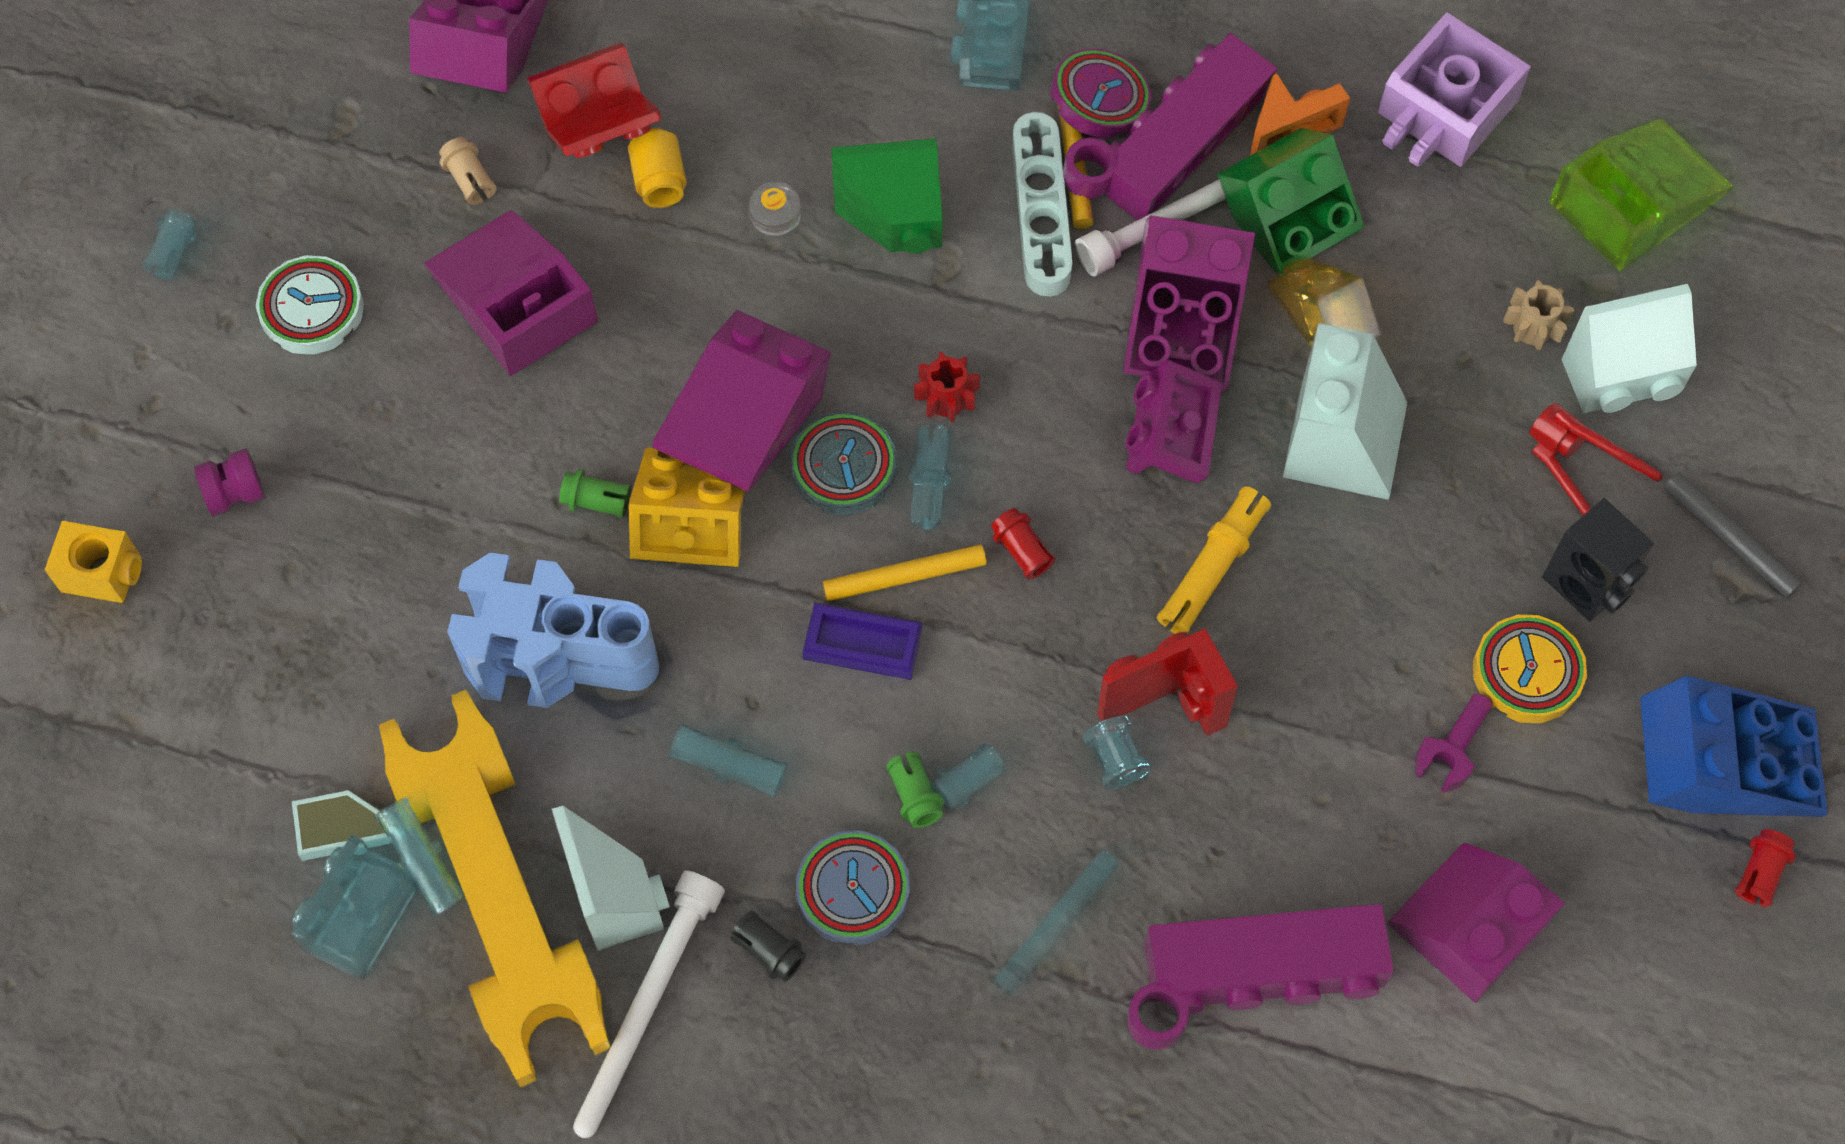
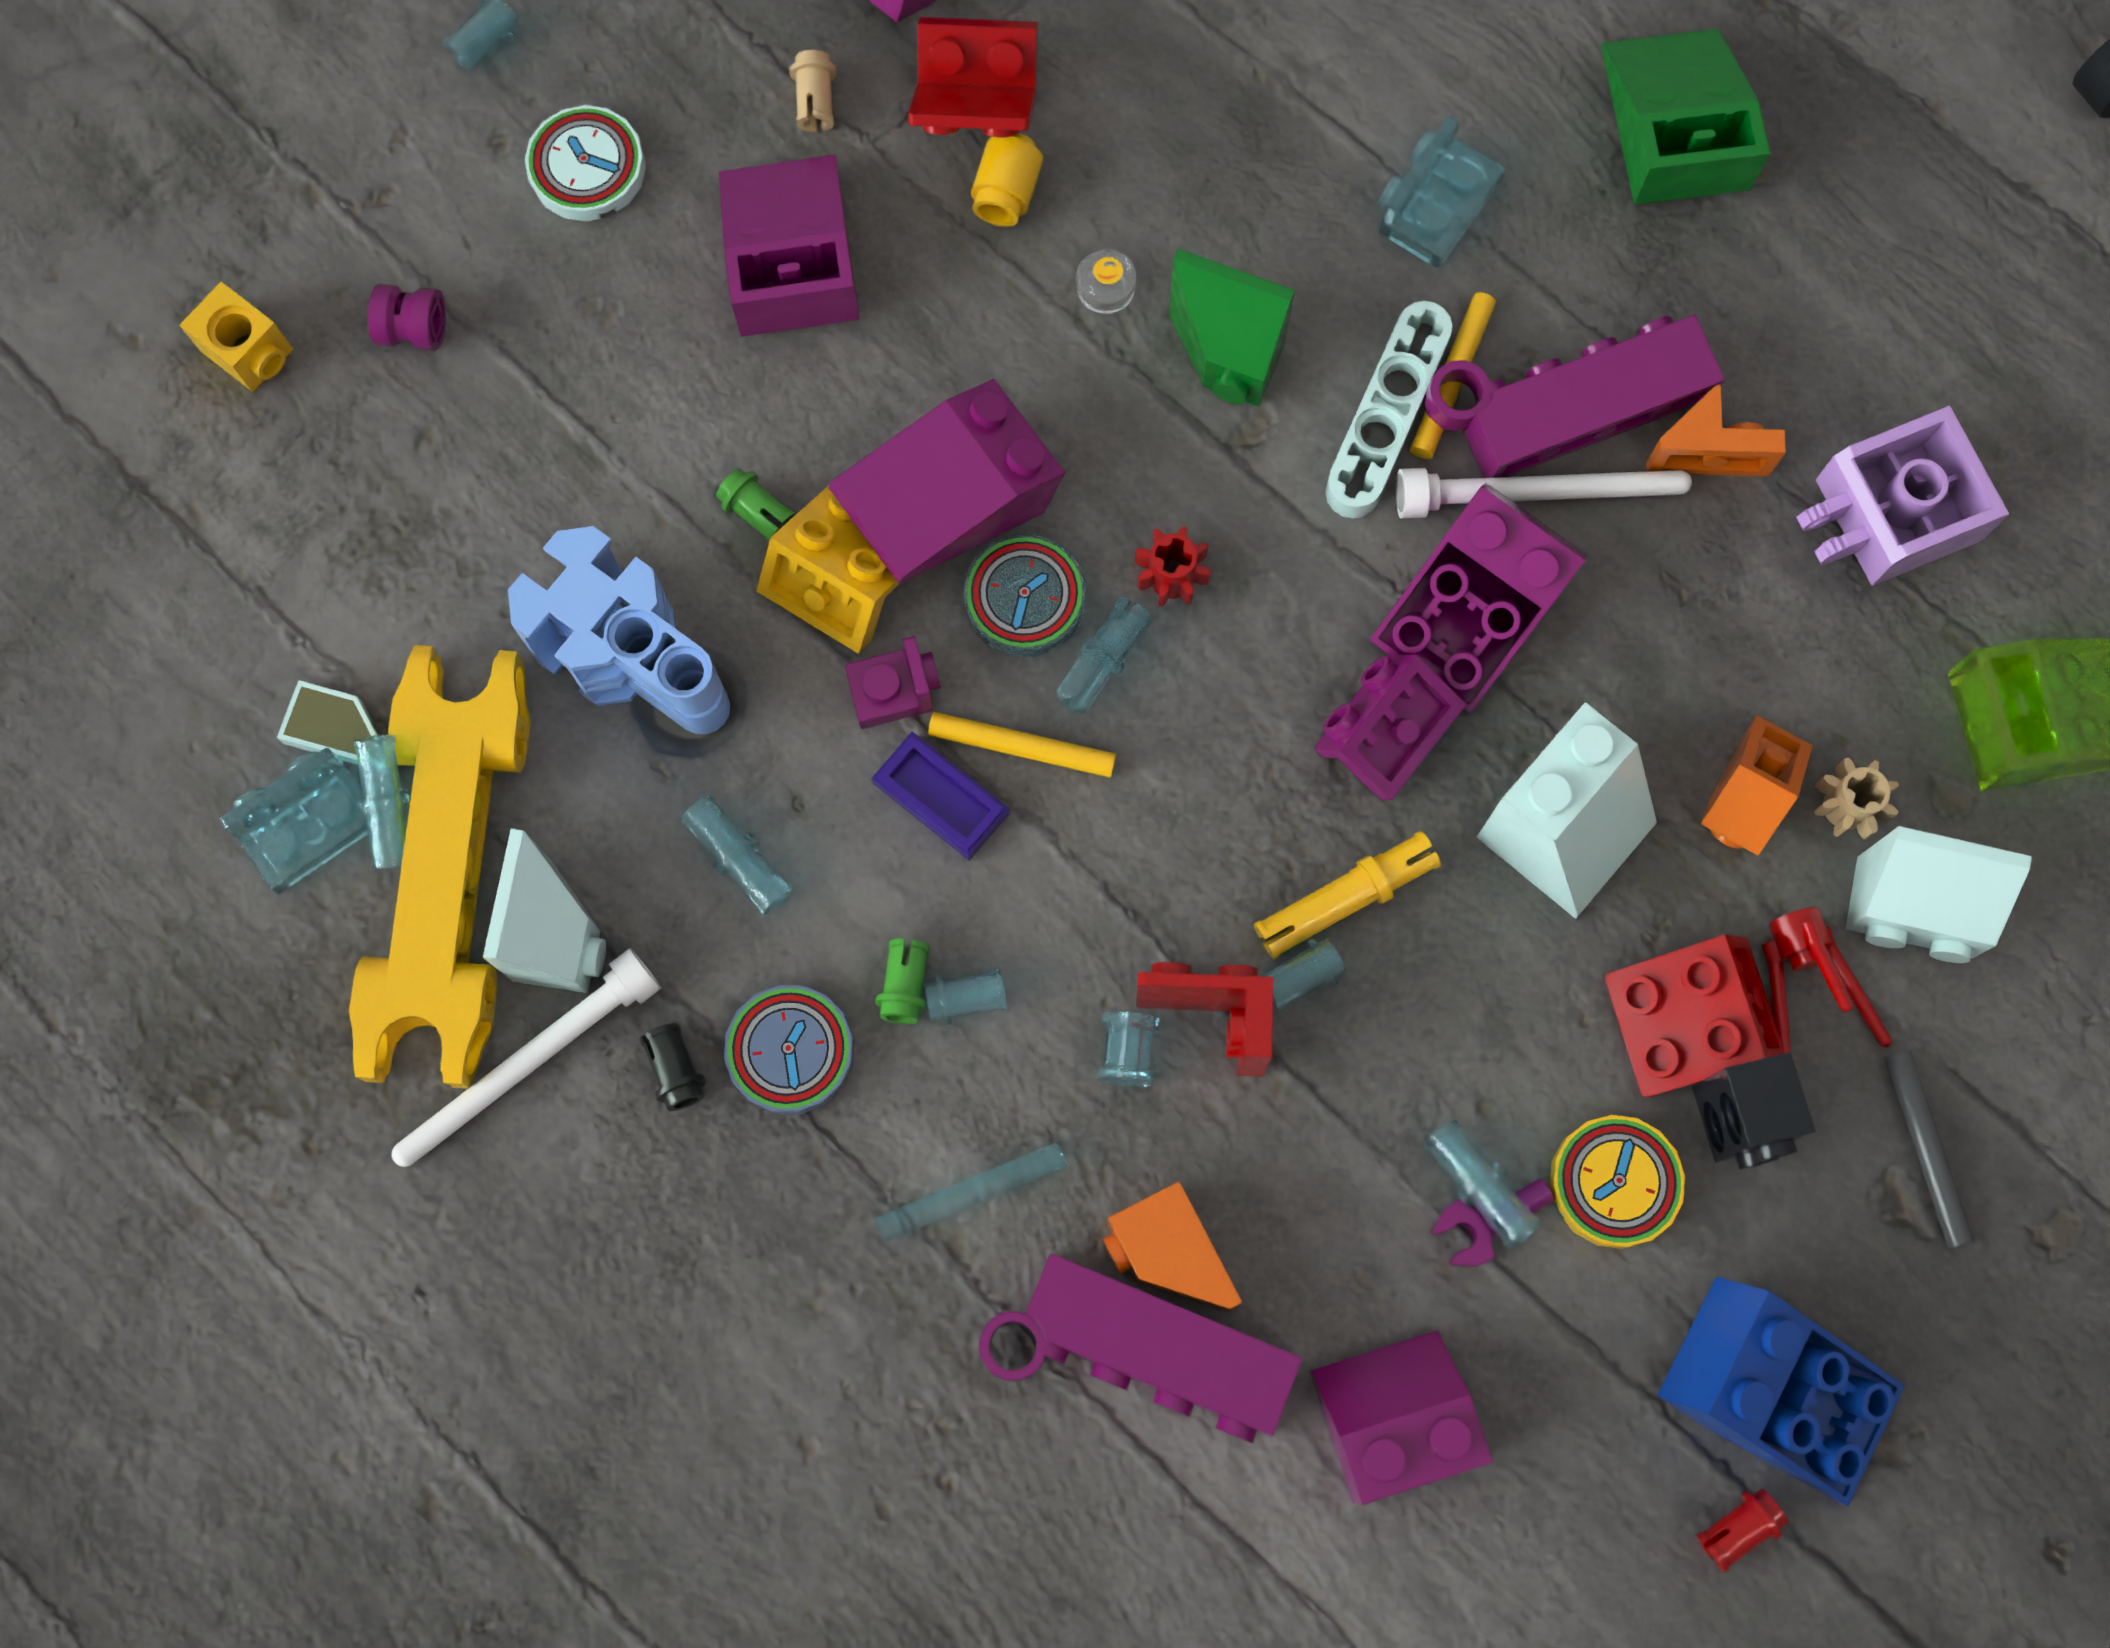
camera: 30 degrees right, 10 degrees up
(779, 575) = (892, 685): none -> magenta bracket
(1022, 543) = (1158, 774): red pin -> none
(1099, 92) = (1519, 313): tile -> none
(1223, 621) = (1305, 972): none -> clear light blue pin
(1236, 881) = (1170, 1250): none -> orange slope
(1292, 197) = (1660, 534): green slope -> none
(1324, 295) = (1627, 671): clear yellow slope -> none
(1436, 716) = (1482, 1184): none -> clear light blue pin
(1465, 341) = (1757, 786): none -> orange slope
(1510, 522) = (1693, 1013): none -> red bracket

